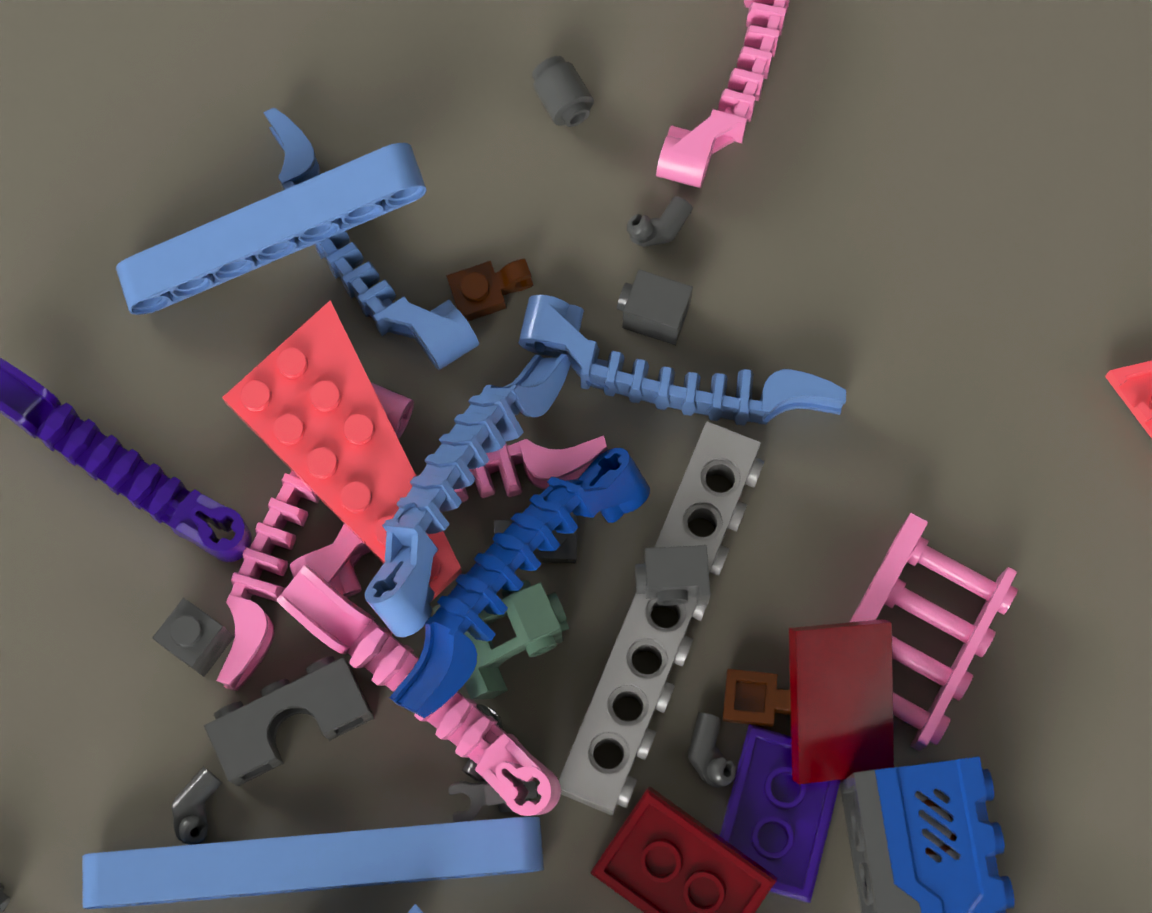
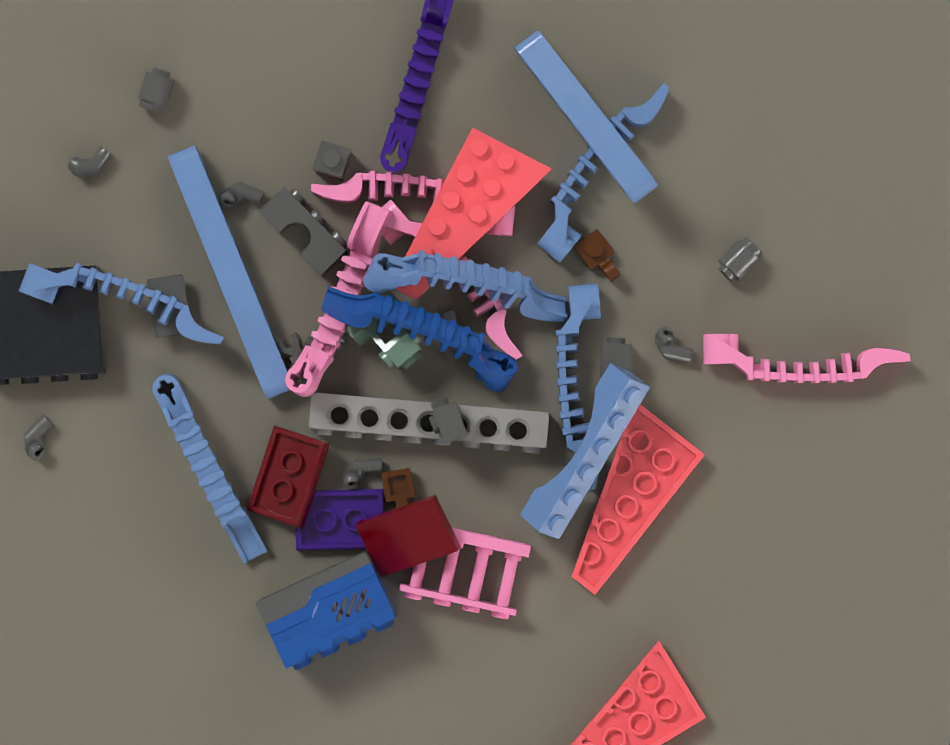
camera: 70 degrees right, 15 degrees up
(852, 454) = (615, 403): none -> medium blue arch
(854, 328) = (641, 480): none -> coral wing

